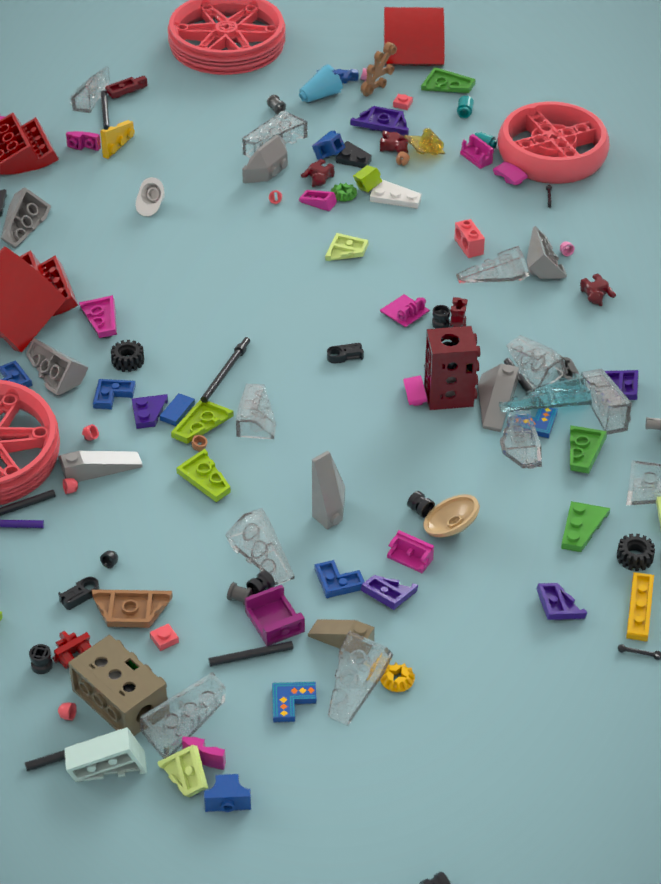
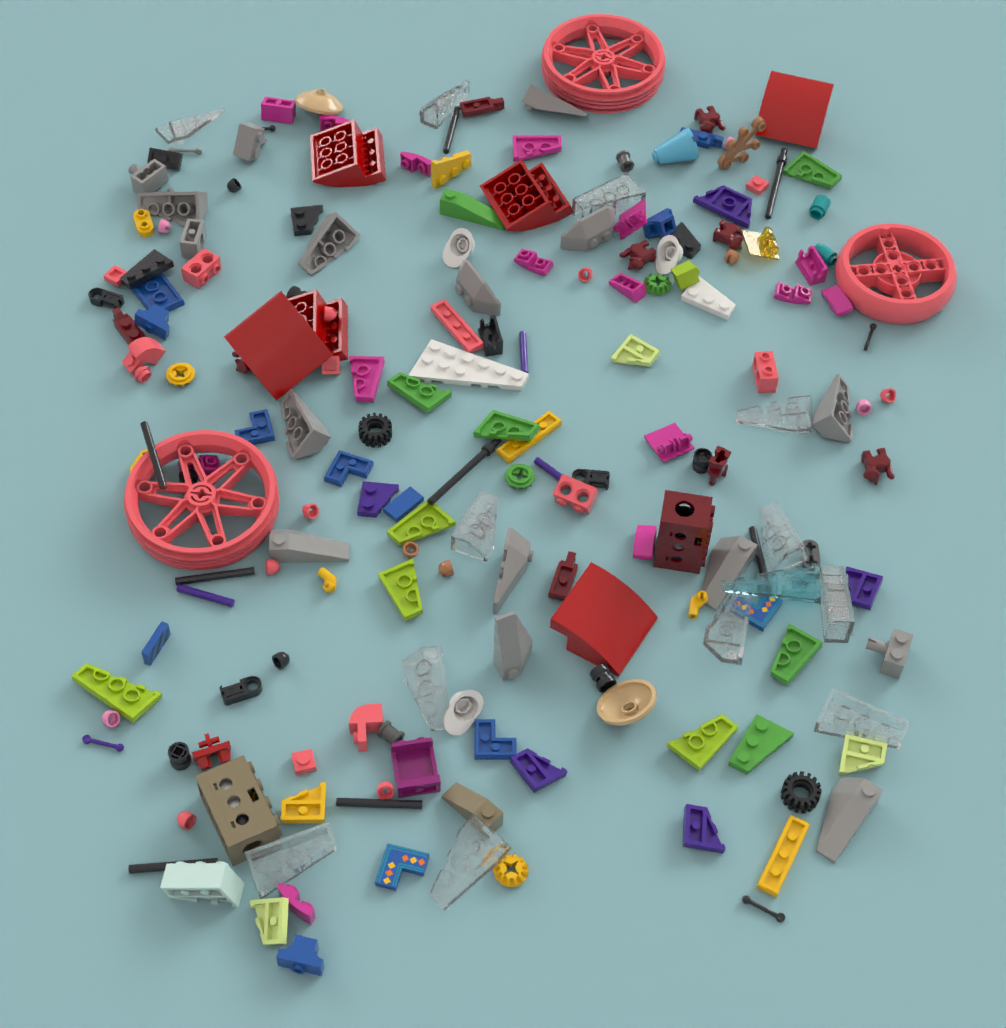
camera: 15 degrees right, 10 degrees up
(49, 269) = (329, 313): none -> coral hinge
(64, 313) = (331, 365): none -> coral plate
(131, 484) = (329, 580): none -> yellow arm
(131, 607) = (283, 720): medium nougat wing -> none
(143, 166) = (468, 209): none -> bright green wedge
(162, 320) = (422, 395): none -> bright green wing
(172, 259) = (456, 326): none -> coral plate
(180, 226) = (476, 291): none -> light grey wedge
(182, 671) = (305, 807): none -> yellow wing
(184, 71) = (544, 101): none -> light grey wedge
(187, 108) = (535, 145): none -> dark pink wing
(192, 291) = (463, 368): none -> white wing
(197, 147) = (526, 197): none -> red slope
(207, 261) = (491, 337): none -> black hinge
(211, 589) = (365, 720): none -> coral brick
(220, 197) = (531, 262): none -> dark pink slope
(239, 450) = (445, 568): none -> nougat hinge
(242, 268) = (523, 351): none -> dark purple bar
(250, 327) = (506, 427): none -> bright green wing
(257, 639) = (380, 790): none -> coral hinge
(261, 582) = (414, 728): black wheel -> none
(274, 333) = (514, 448): none -> yellow tile
(284, 361) = (514, 471): none -> bright green gear
(302, 146) = (631, 219): none -> dark pink hinge
(302, 433) = (514, 564): none -> light grey wedge
(302, 557) = (462, 711): none -> white piece
(311, 356) = (546, 467): none -> dark purple bar
(337, 361) = (578, 490): none -> coral brick
(339, 60) = (708, 120): none -> dark red animal
(345, 165) = (668, 254): none -> white piece
(352, 435) = (564, 578): none -> dark red hinge
(403, 456) = (603, 619): none -> red slope
(411, 551) = (573, 731): dark pink hinge -> none
(417, 81) = (781, 162): none -> black bar
(472, 177) = (795, 295): none -> dark pink slope
(481, 427) = (696, 603): none -> yellow arm
(533, 534) = (703, 743): none -> lime wing
(587, 233) = (889, 398): none -> coral hinge

